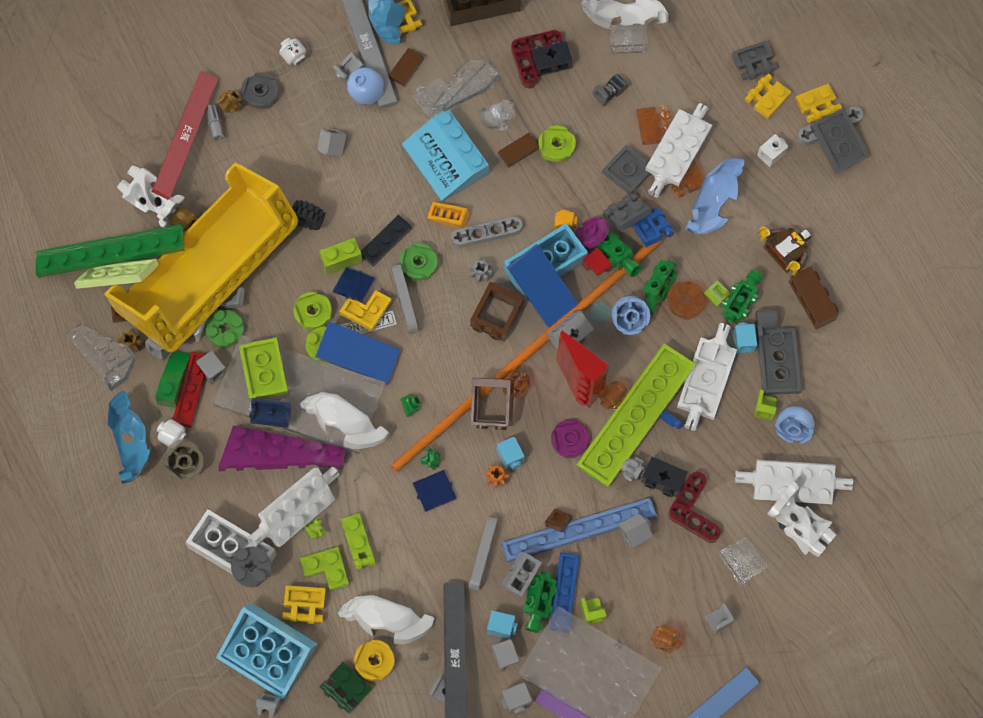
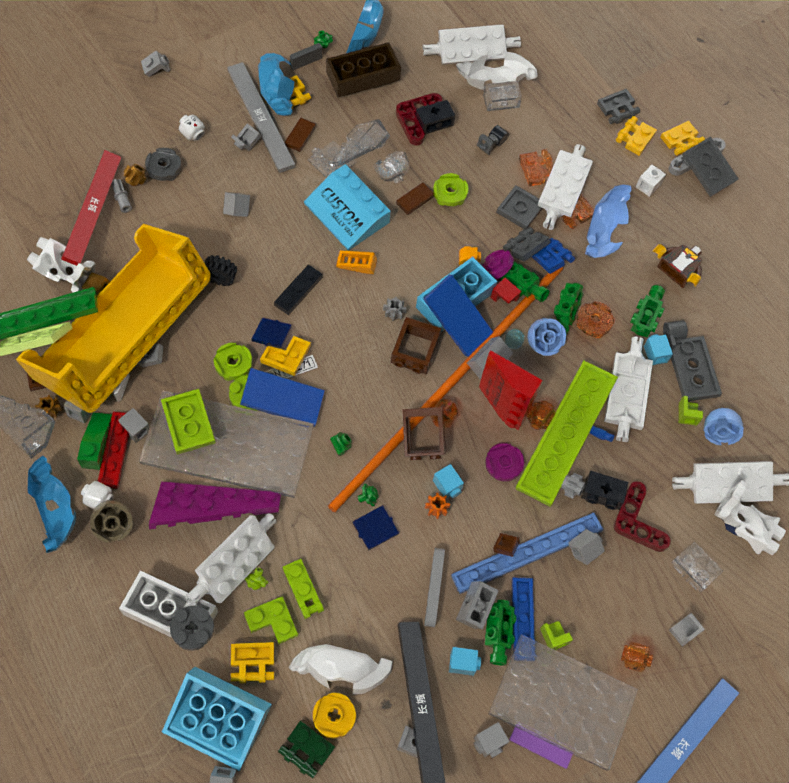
camera: 10 degrees left, 5 degrees down
(221, 318) = (137, 379): bright green plate -> none
(270, 413) = (199, 464): dark blue hinge -> none
(339, 413) = (267, 456): white animal -> none
(340, 256) = (256, 306): lime brick -> none
(365, 86) = (263, 152): light blue cylinder -> none
(404, 298) = (323, 341): light grey beam -> none
(412, 254) = (336, 315): bright green plate -> none
(487, 234) = (393, 270): light grey beam -> none
(505, 654) = (472, 693): light grey panel -> none
(717, 293) = (623, 310): lime plate -> none
(813, 297) = (714, 307): reddish brown brick -> none

